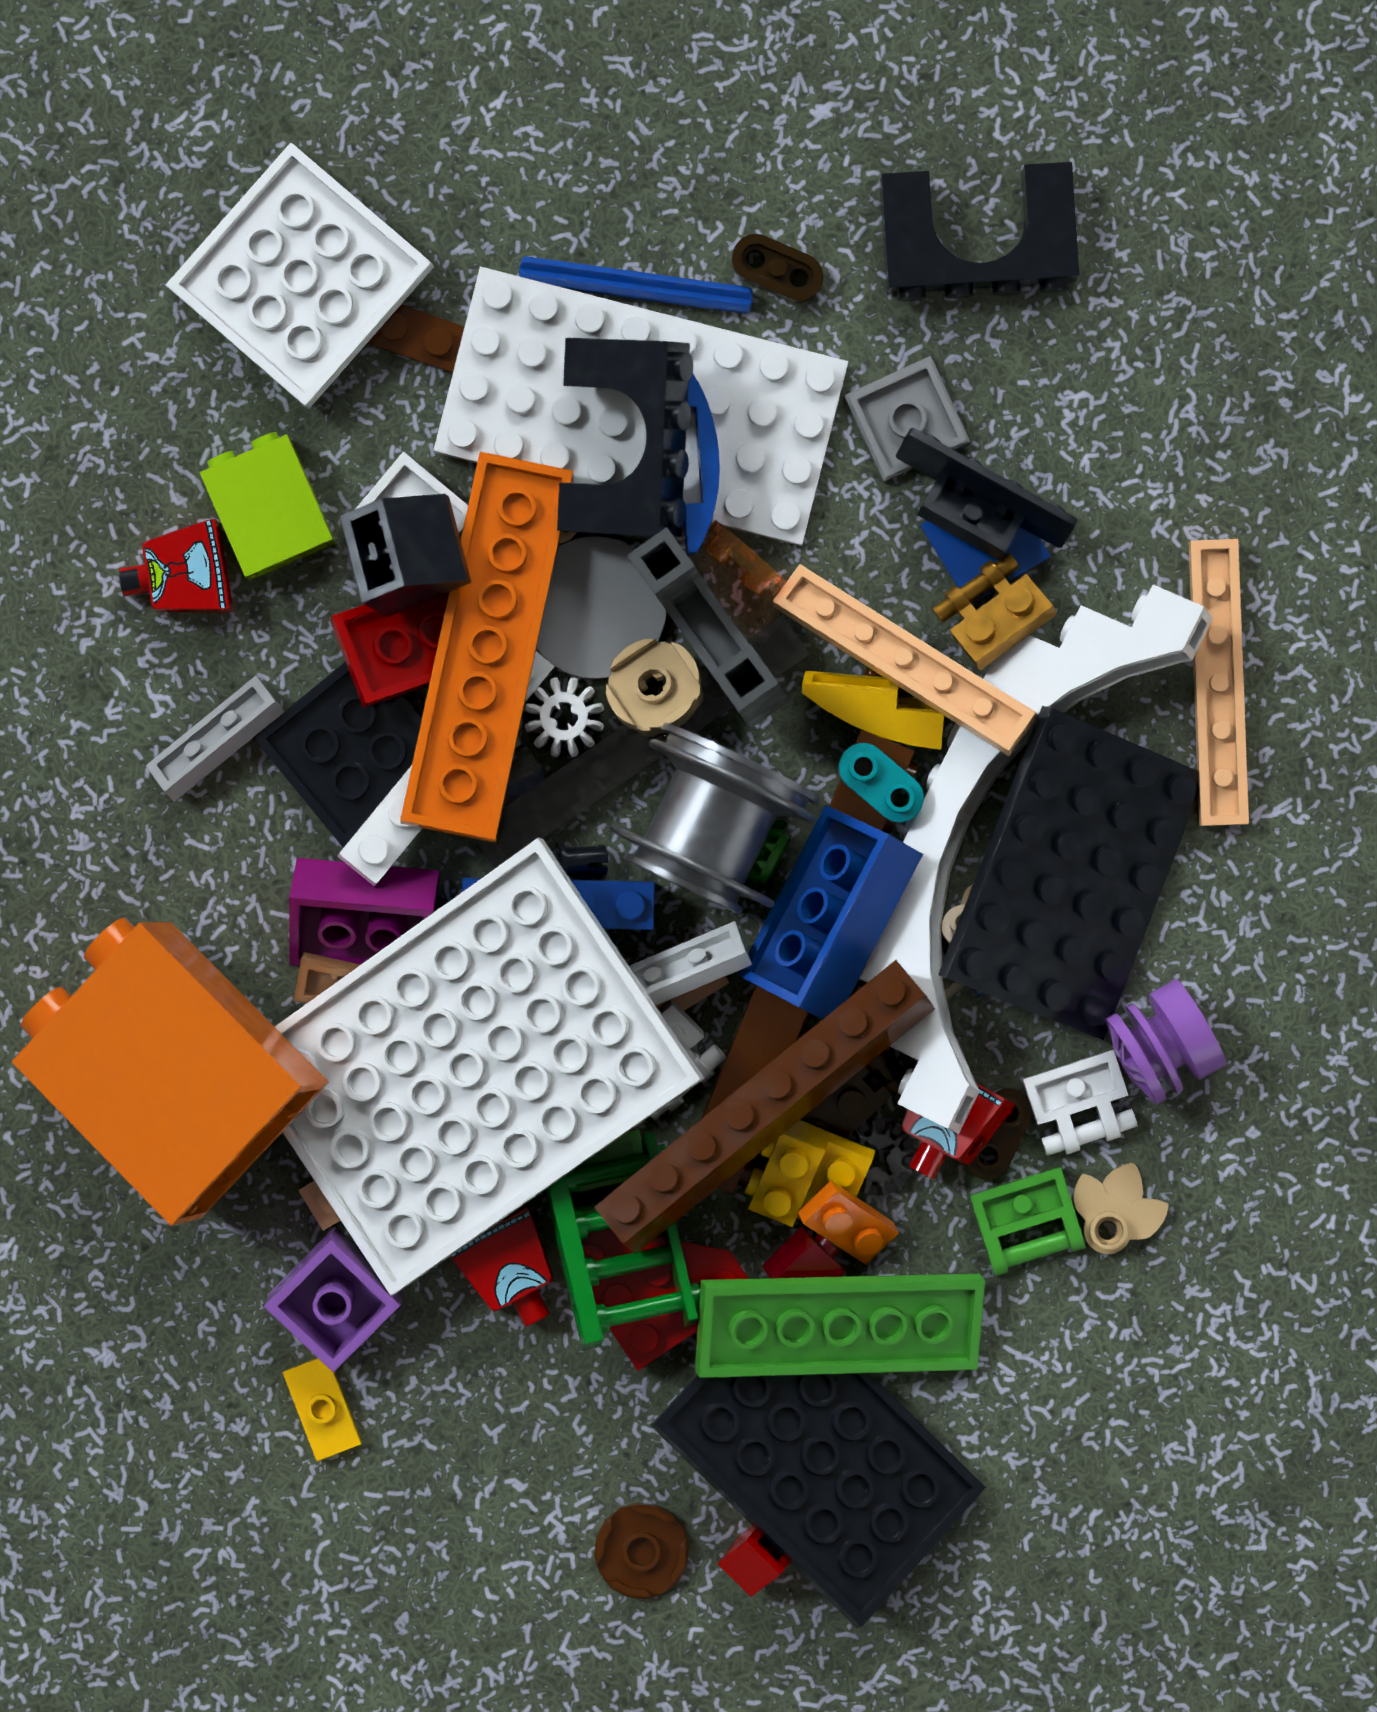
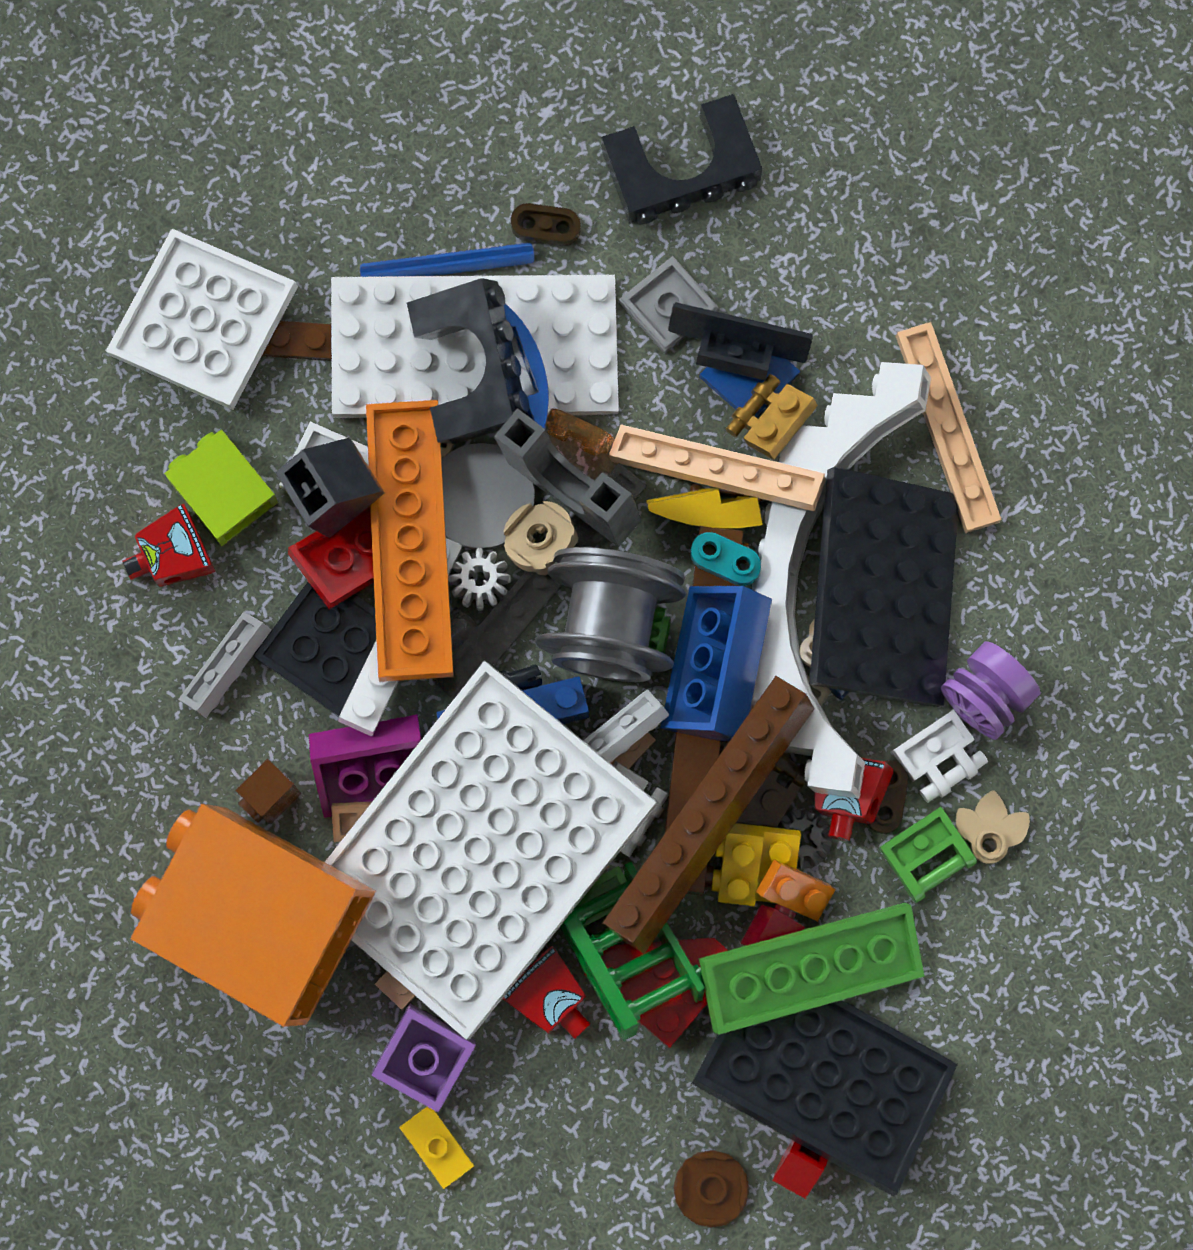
camera: 15 degrees left, 10 degrees down
(225, 921) = (267, 793): none -> reddish brown brick

